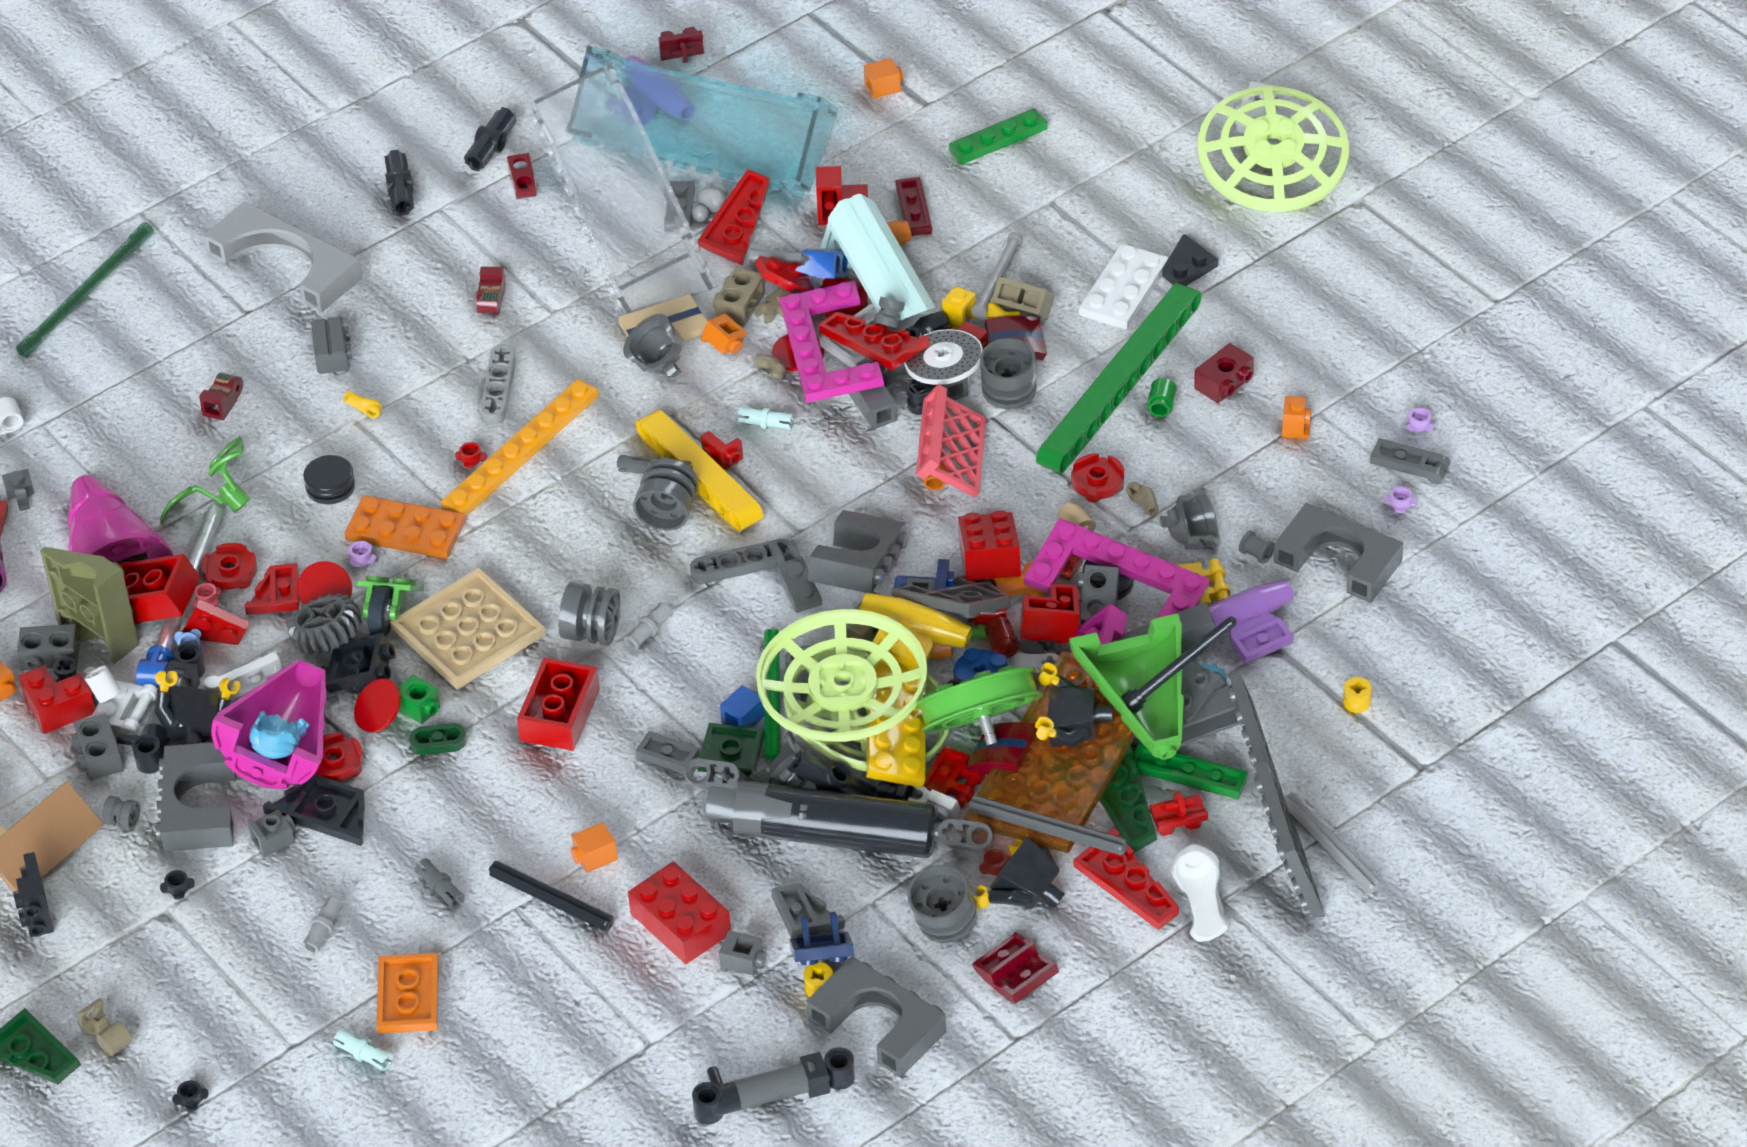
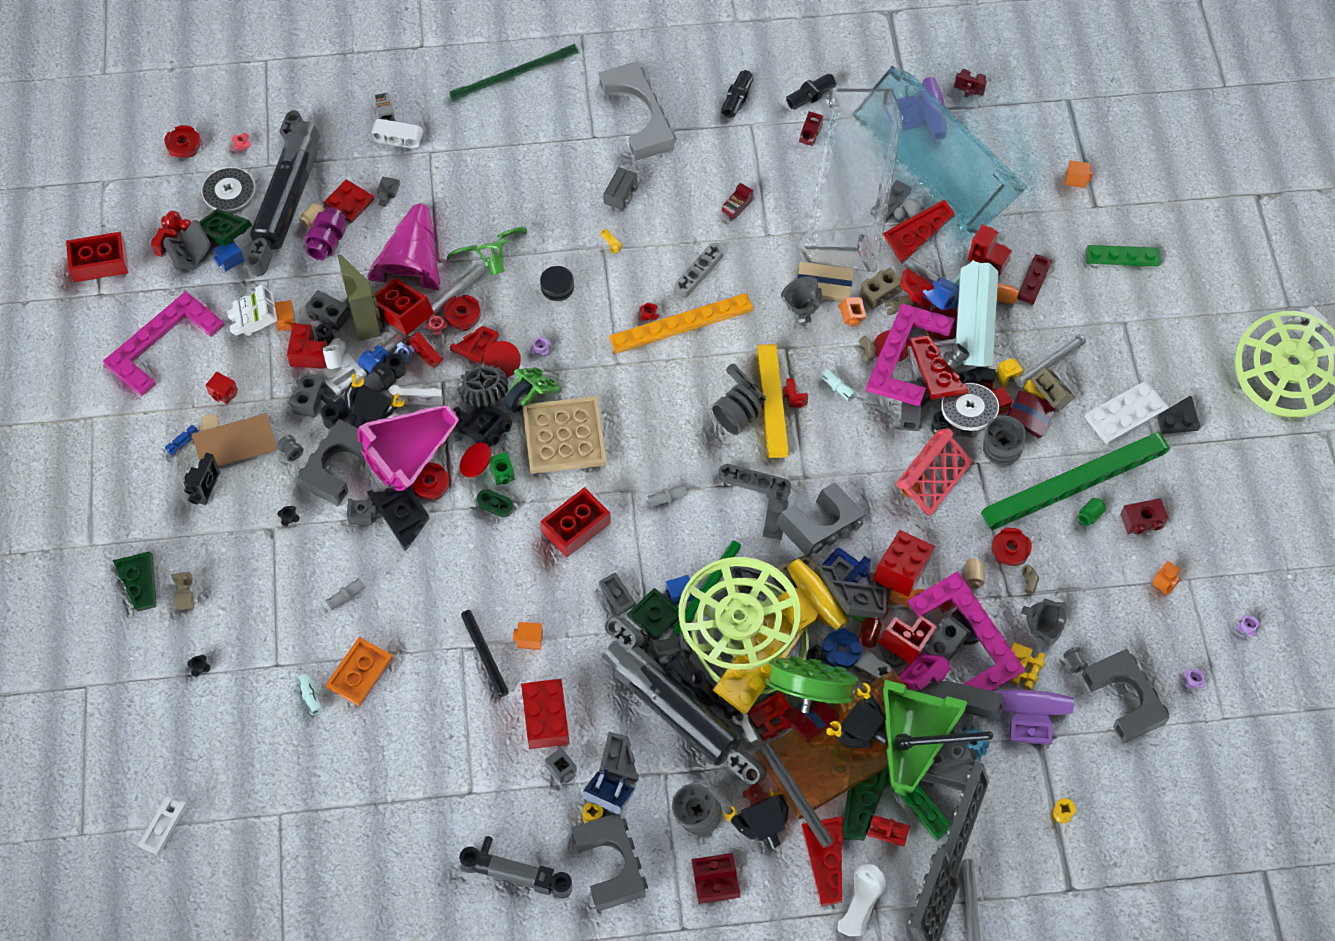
camera: 30 degrees right, 15 degrees up
(222, 392) = (537, 189): dark red leg -> none
(276, 737) = (400, 450): medium azure hair -> none
(405, 526) = (578, 341): orange plate -> none
(439, 883) = (428, 605): dark grey pin -> none
(589, 613) = (634, 469): dark grey wheel -> none
(1410, 460) = (1221, 652): dark grey plate -> none

